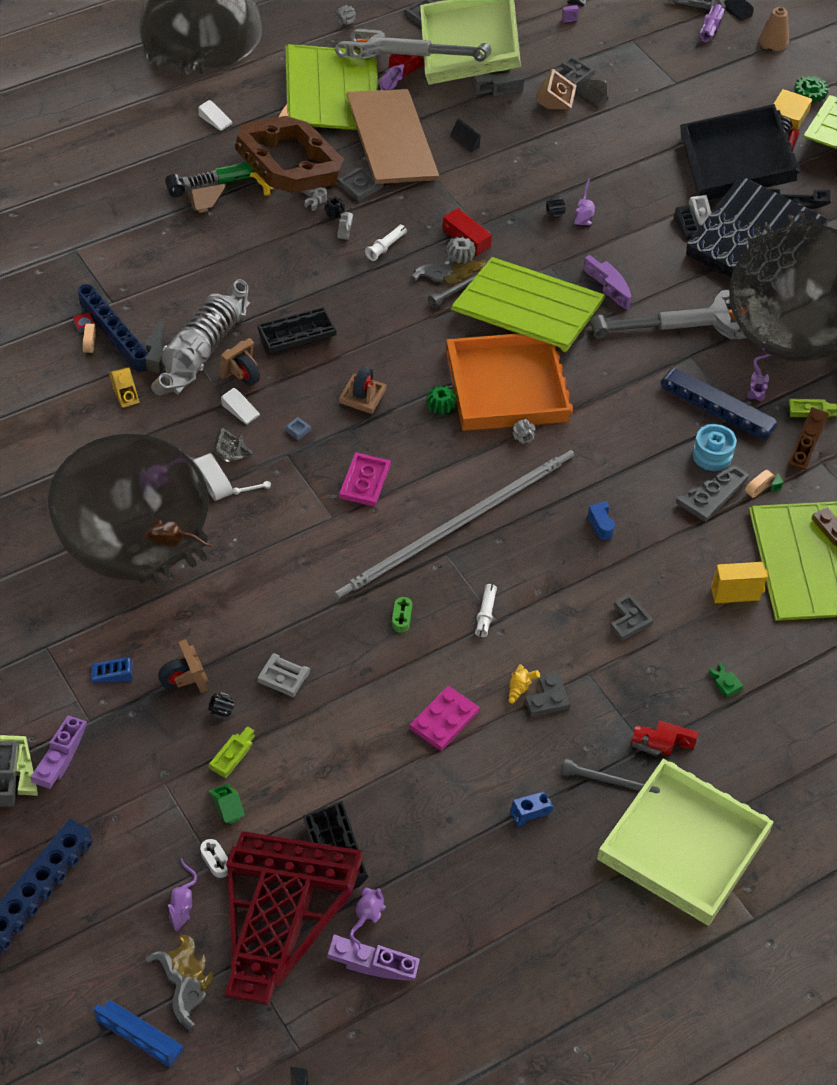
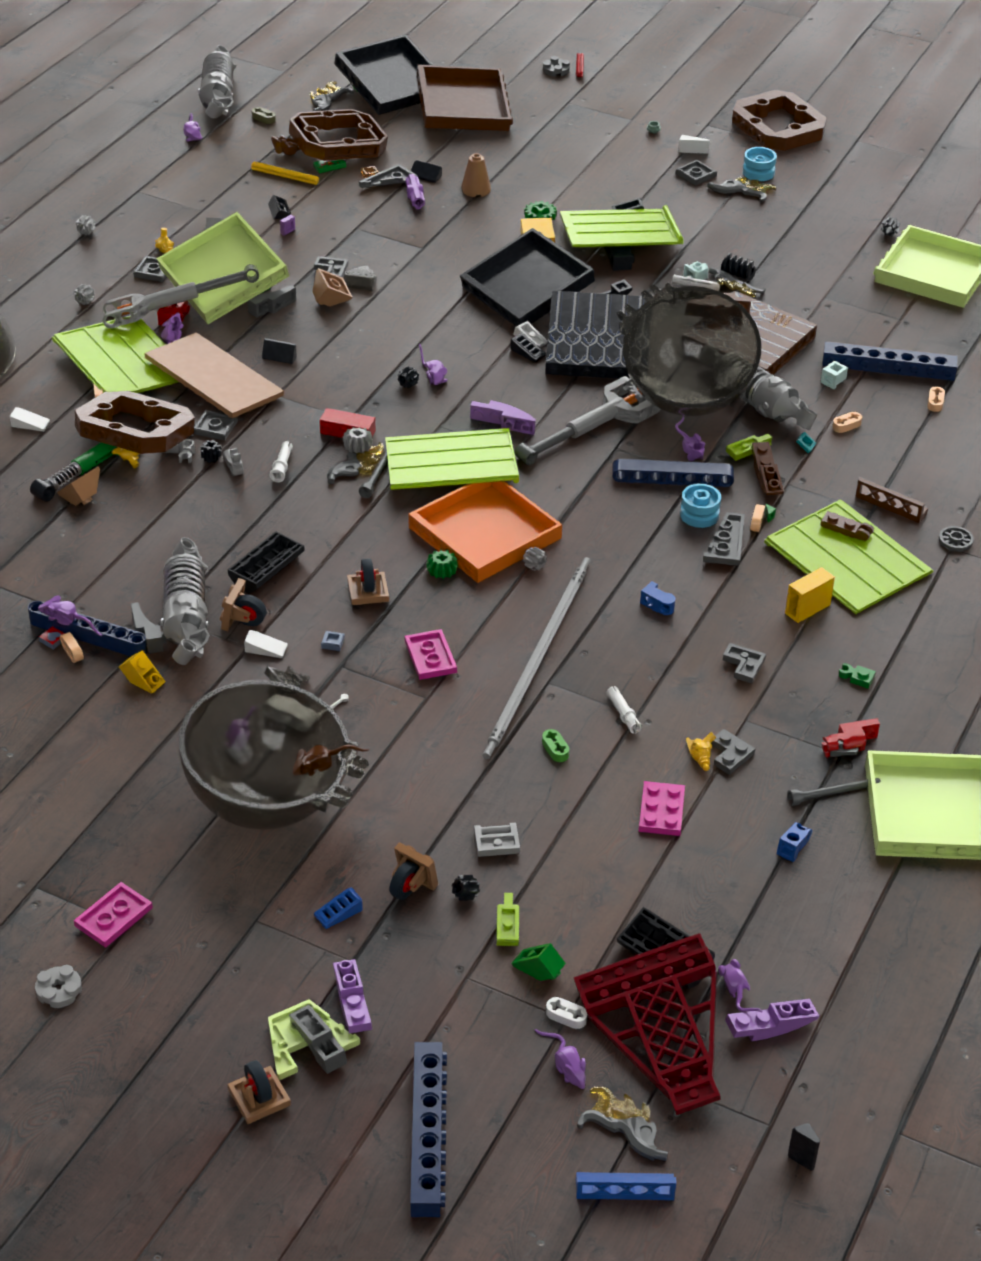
camera: 30 degrees left, 10 degrees down
(98, 304) = (63, 611): none -> medium lavender animal

